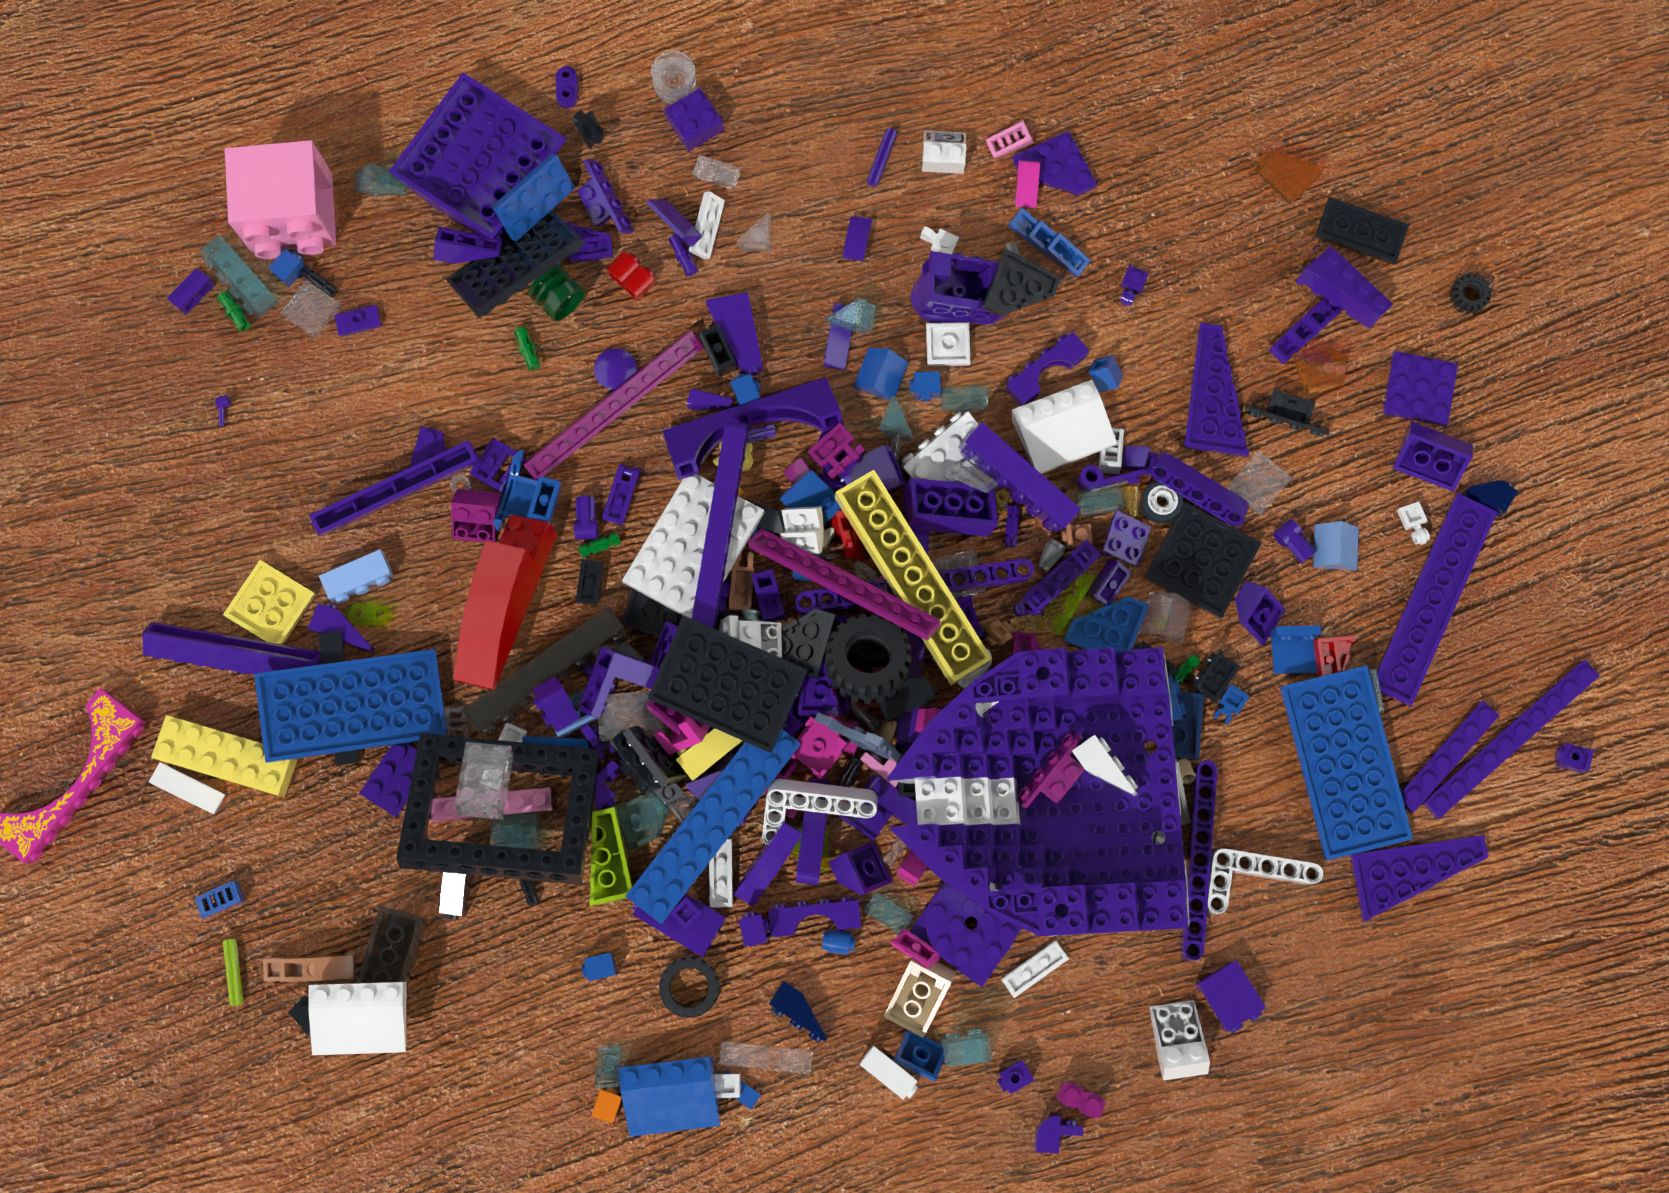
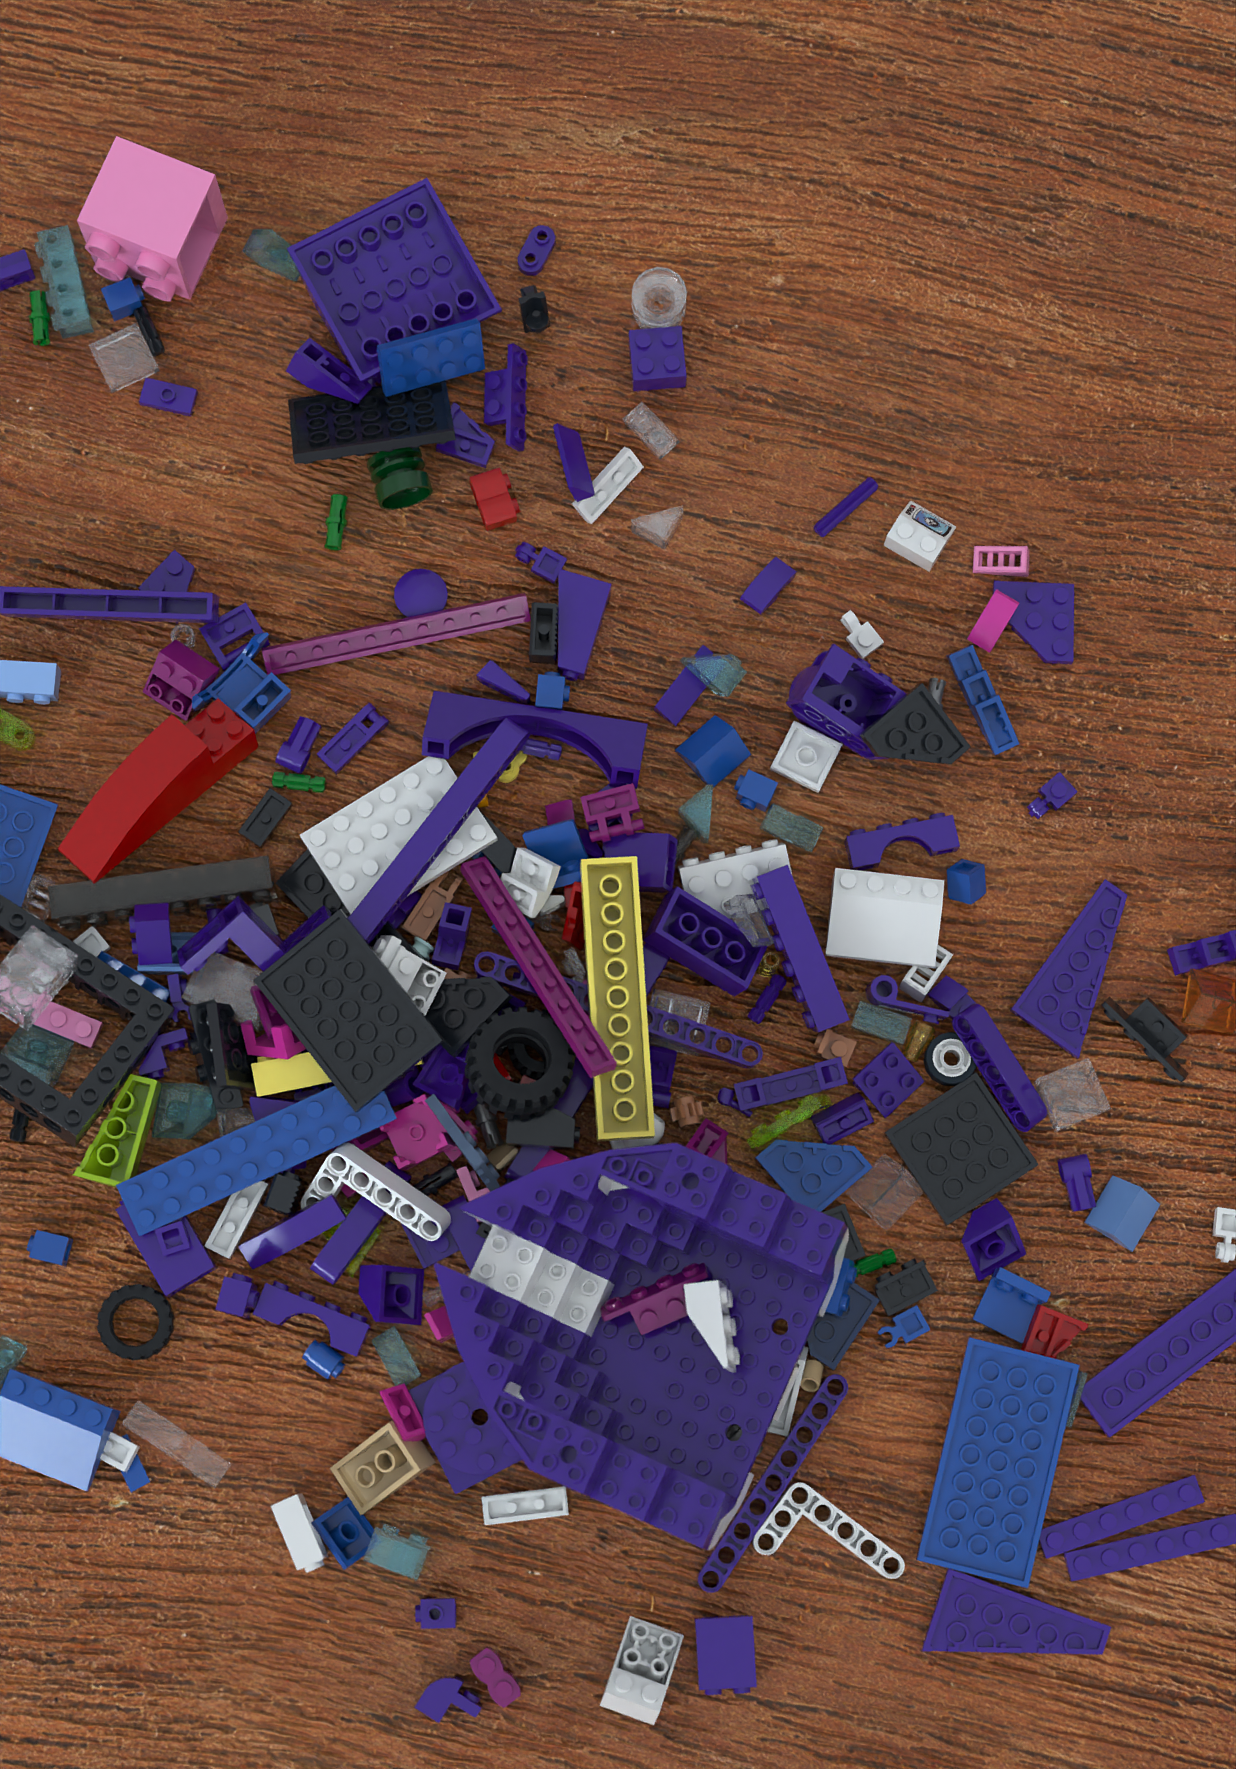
camera: 25 degrees right, 0 degrees up
(683, 255) = (563, 507): dark purple pin -> none
(694, 302) = (546, 564): none -> dark purple plate
(748, 839) = (285, 1193): none -> black brick
(794, 1005) = (238, 1403): clear blue slope -> none
(1051, 554) = (793, 1053): dark grey cone -> none

